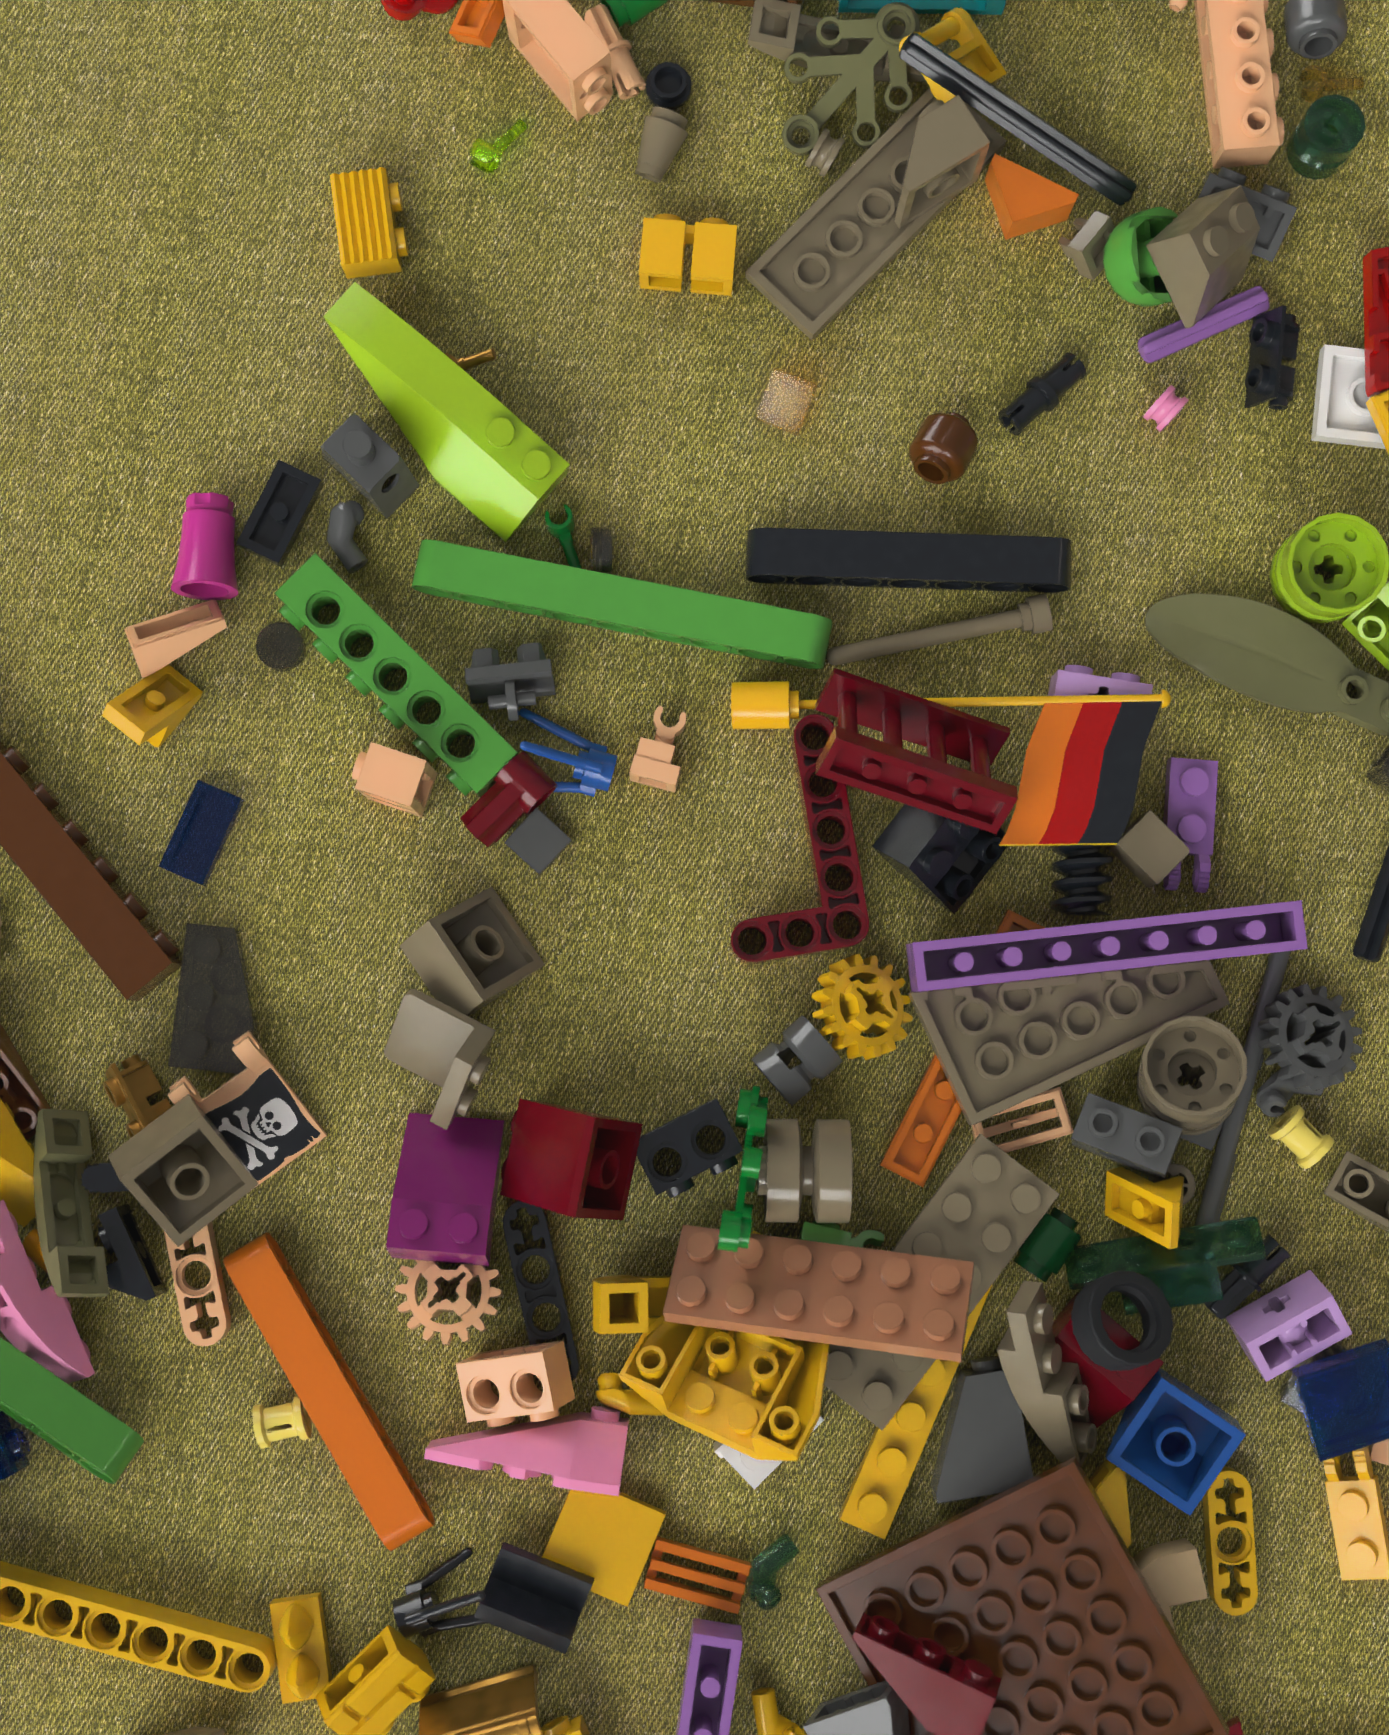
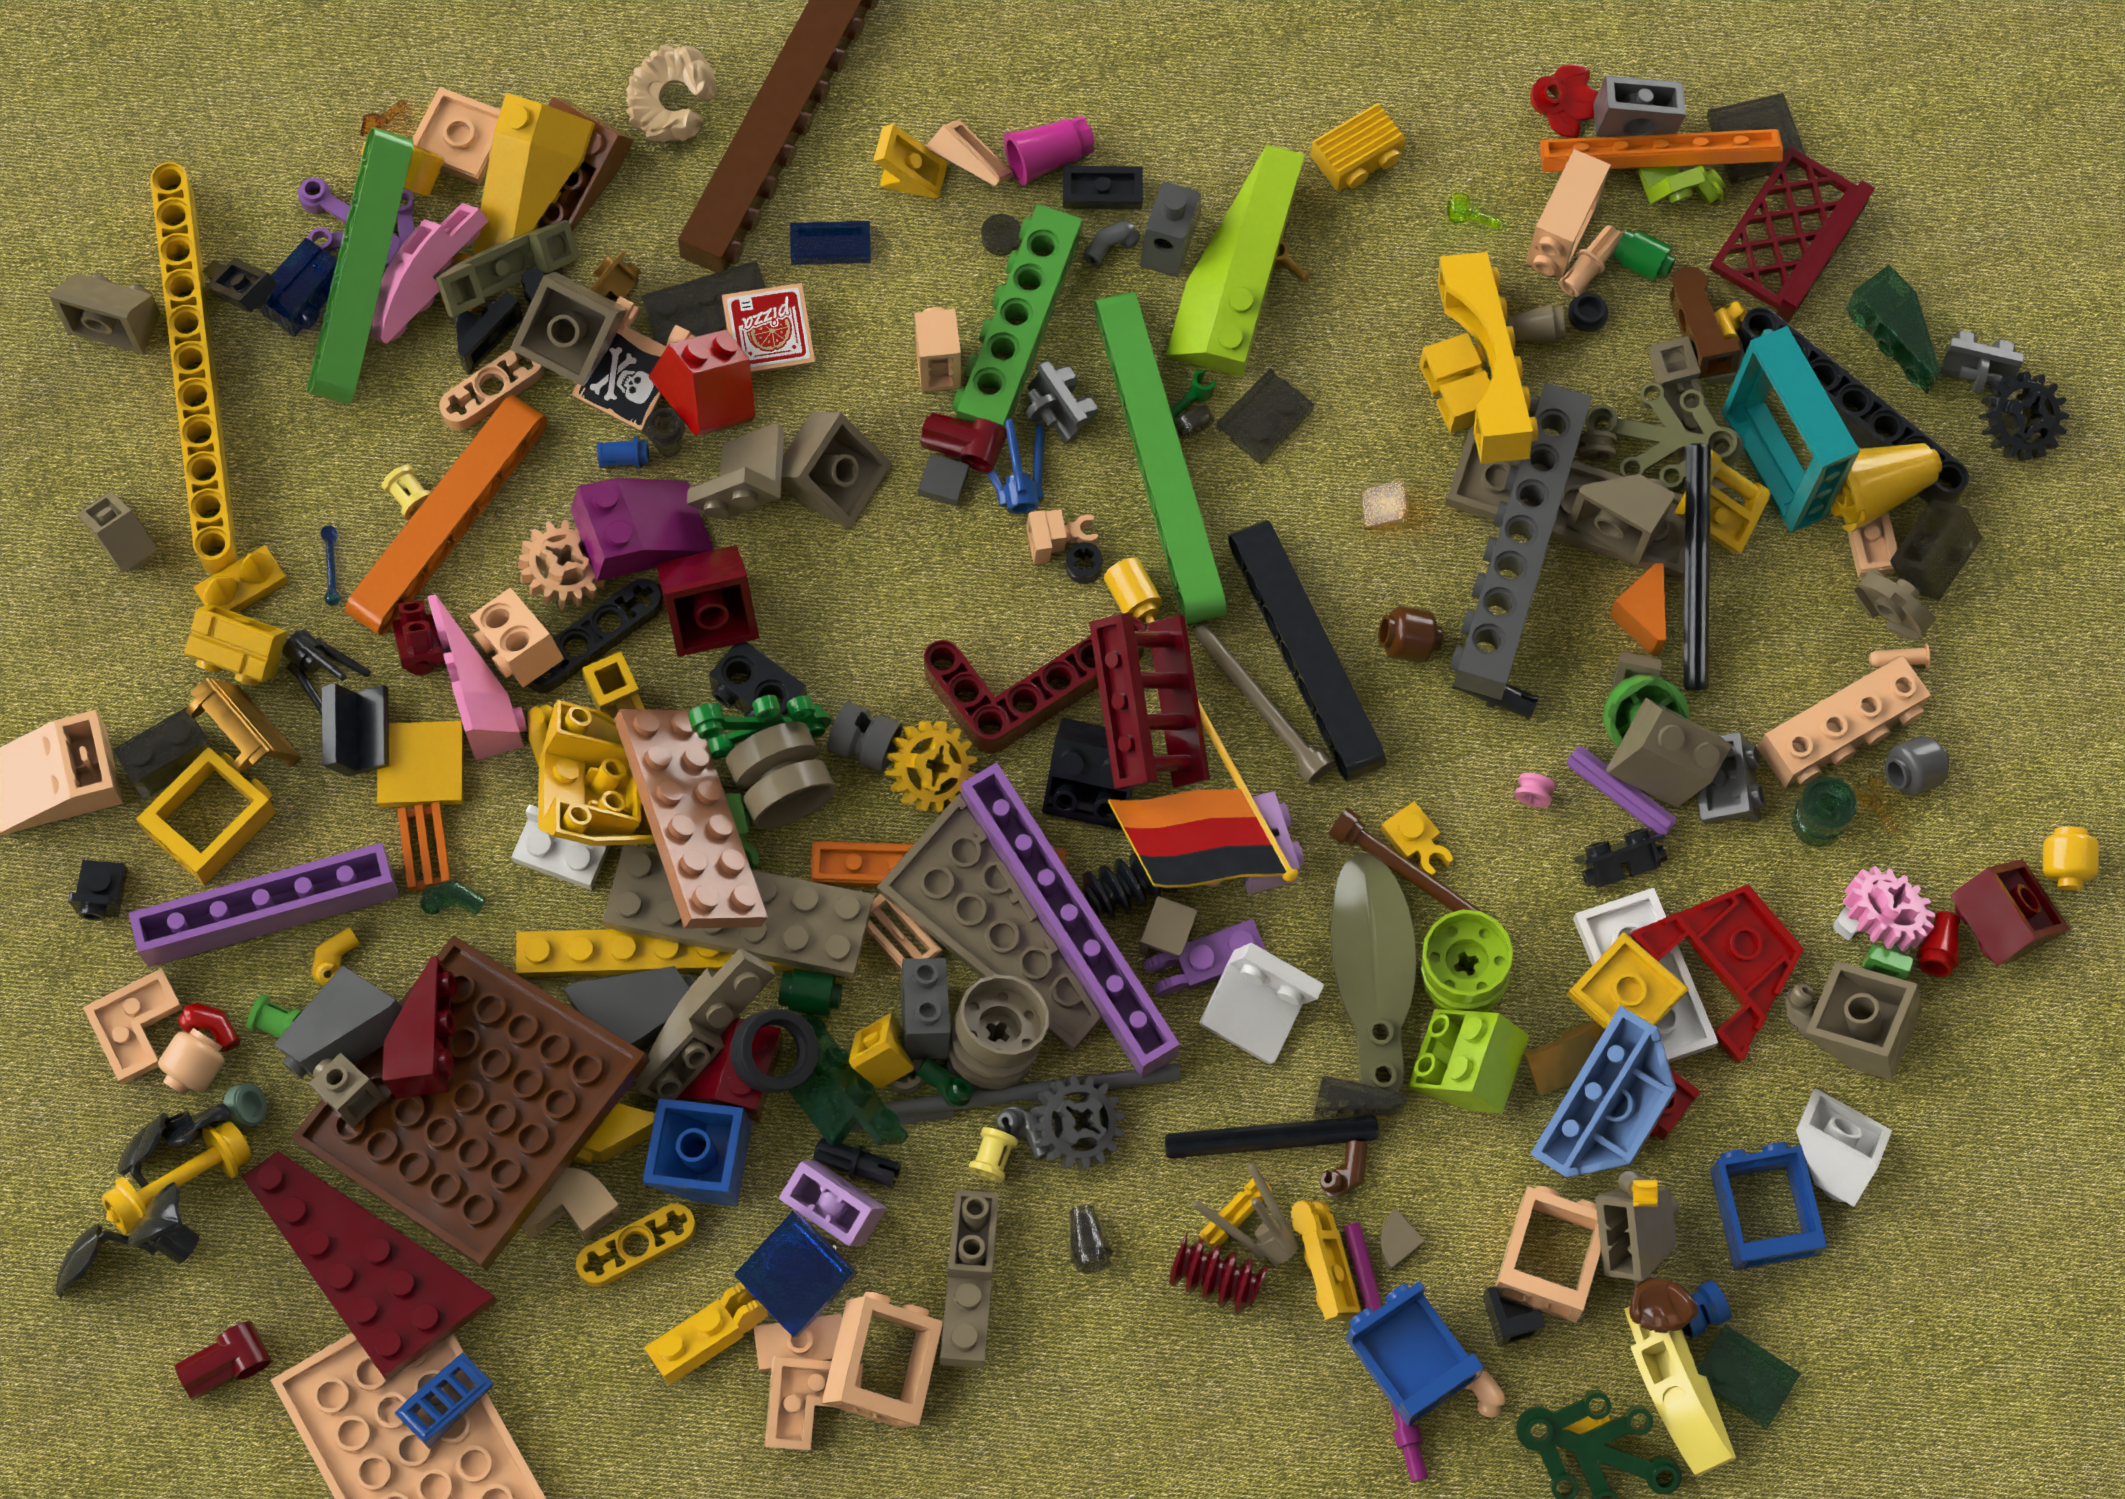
camera: 65 degrees right, 15 degrees down
(276, 947) = (770, 327): none -> tile
(288, 1524) = (329, 536): none -> hinge
(316, 1045) = (706, 382): none -> red slope
(337, 1120) = (665, 431): none -> clear smoke cone
(346, 1168) = (623, 453): none -> blue pin
(465, 1490) = (417, 639): none -> dark red hips
(603, 192) = (1472, 299): none -> yellow arch
(625, 473) = (1265, 416): none -> clear smoke plate
(708, 727) = (1081, 550): none -> black bush
(794, 162) = (1489, 671): none -> dark grey brick
(1120, 613) = (1351, 830): none -> reddish brown piece
(1152, 553) = (1414, 835): none -> yellow plate
(1213, 1148) = (953, 1089): none -> dark green arm
(1268, 797) = (1258, 1001): none -> white bracket

